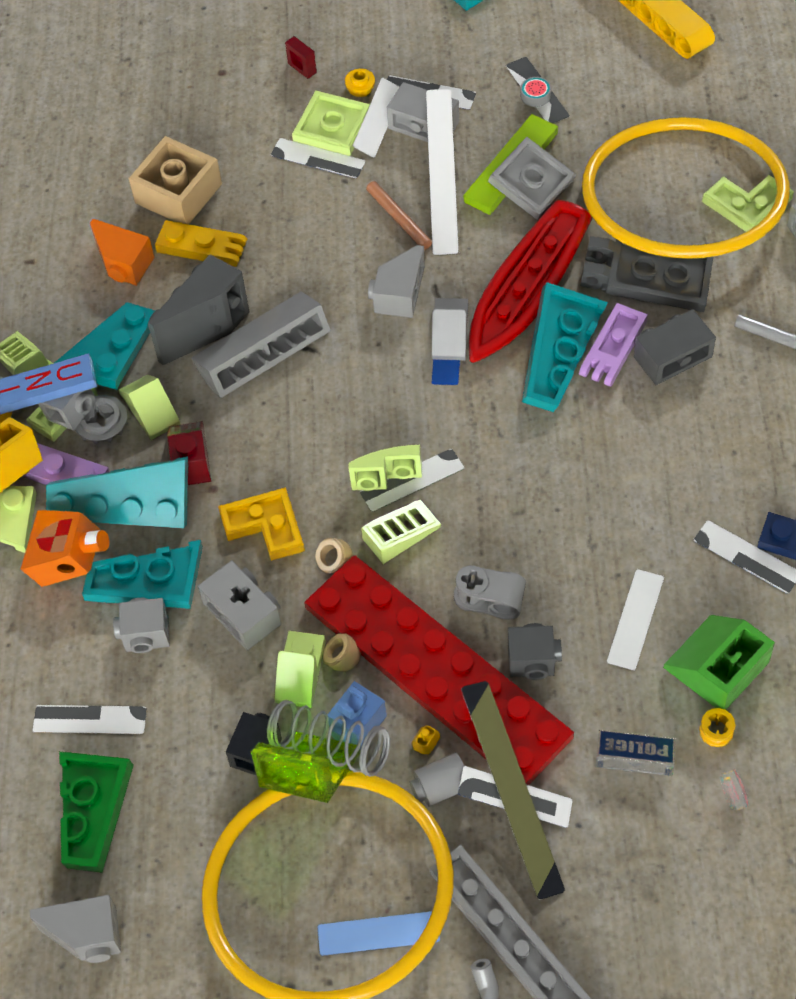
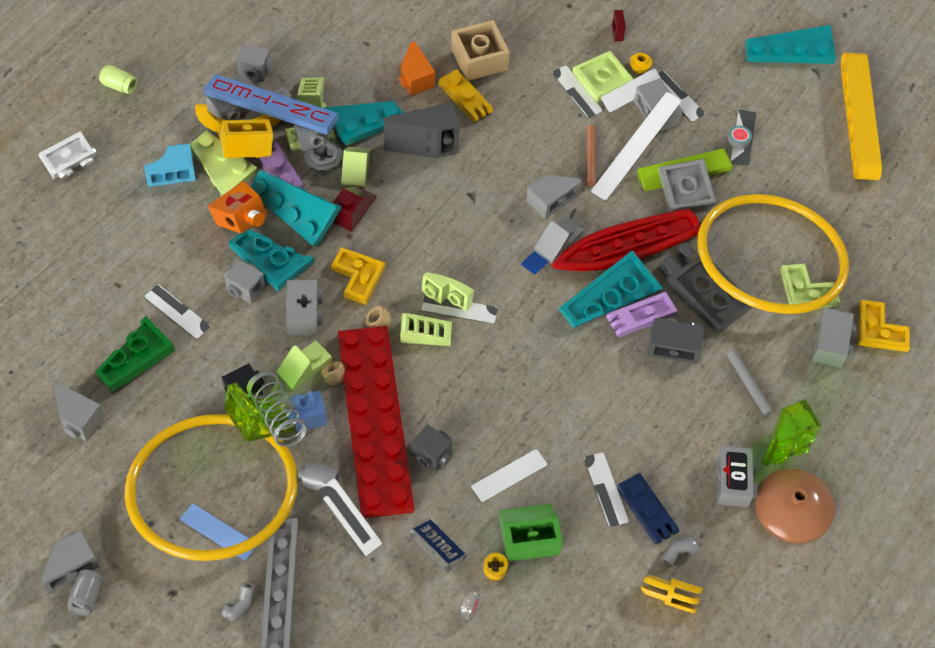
camera: 30 degrees right, 0 degrees up
(261, 344) = (445, 175): light grey brick -> none
(425, 739) = (334, 452): yellow rock -> none
(493, 592) = (441, 401): light grey piece -> none
(513, 790) = (350, 511): olive sticker -> none

